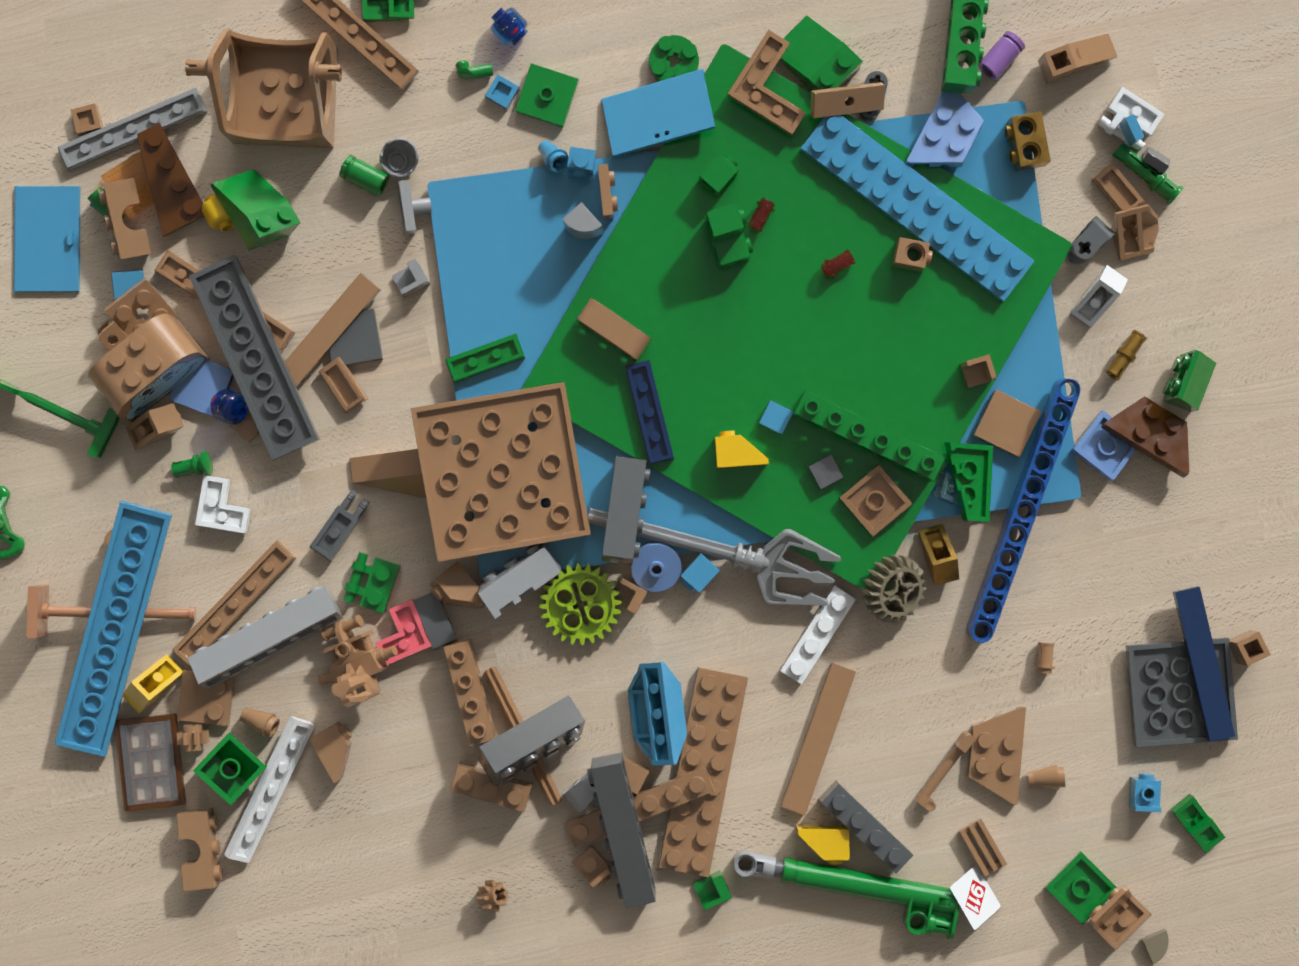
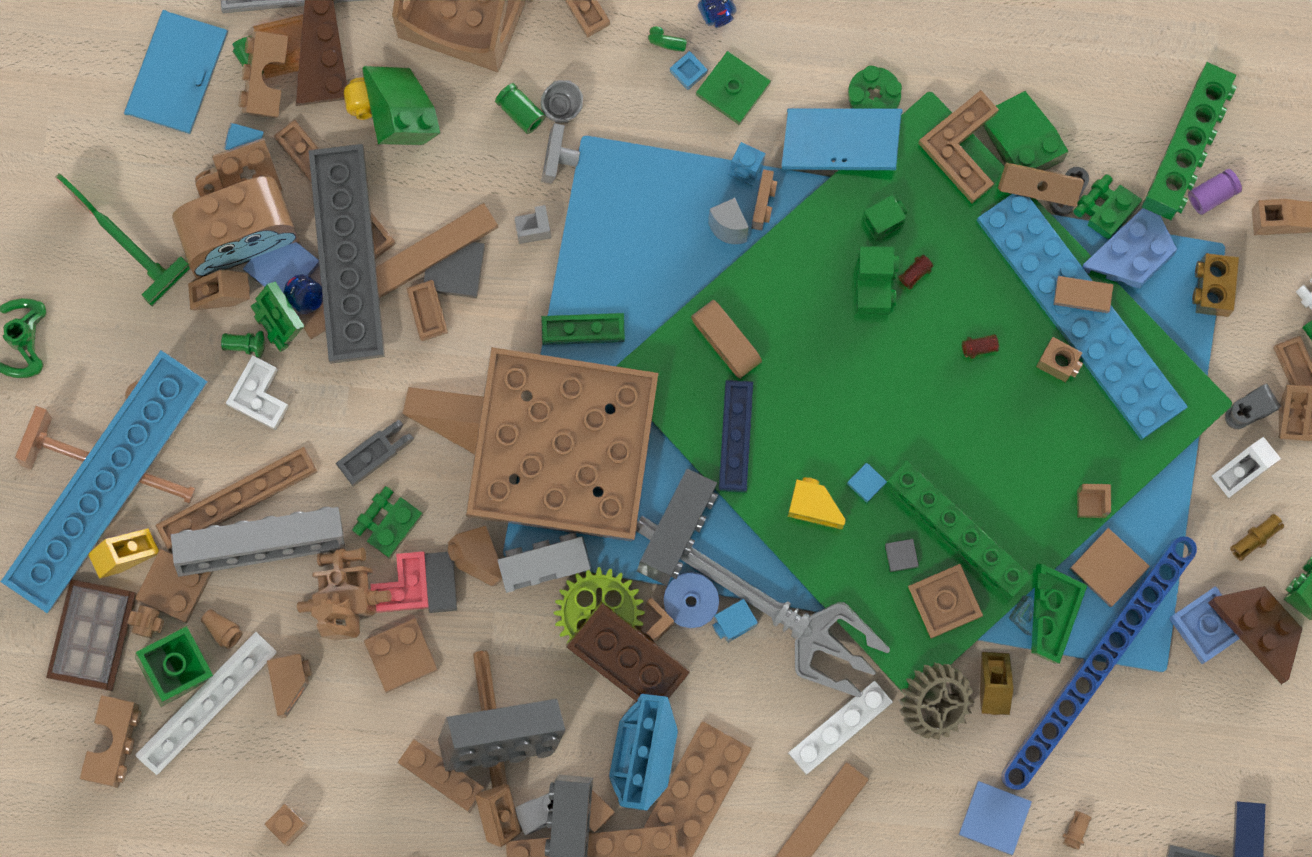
camera: 15 degrees right, 10 degrees down
(212, 433) = (276, 316): none -> green plate
(373, 871) = (286, 824): none -> medium nougat brick
(422, 694) = (400, 655): none -> medium nougat plate
(470, 692) = (452, 664): medium nougat brick -> none
(551, 805) = (498, 815): none -> medium nougat slope
(553, 157) = (720, 149): dark azure cone -> none
(616, 635) = (626, 655): none -> reddish brown plate
(915, 189) = (1083, 294): none -> medium nougat tile
(918, 102) = (1114, 212): none -> green plate
(972, 669) = (995, 818): none -> medium blue tile

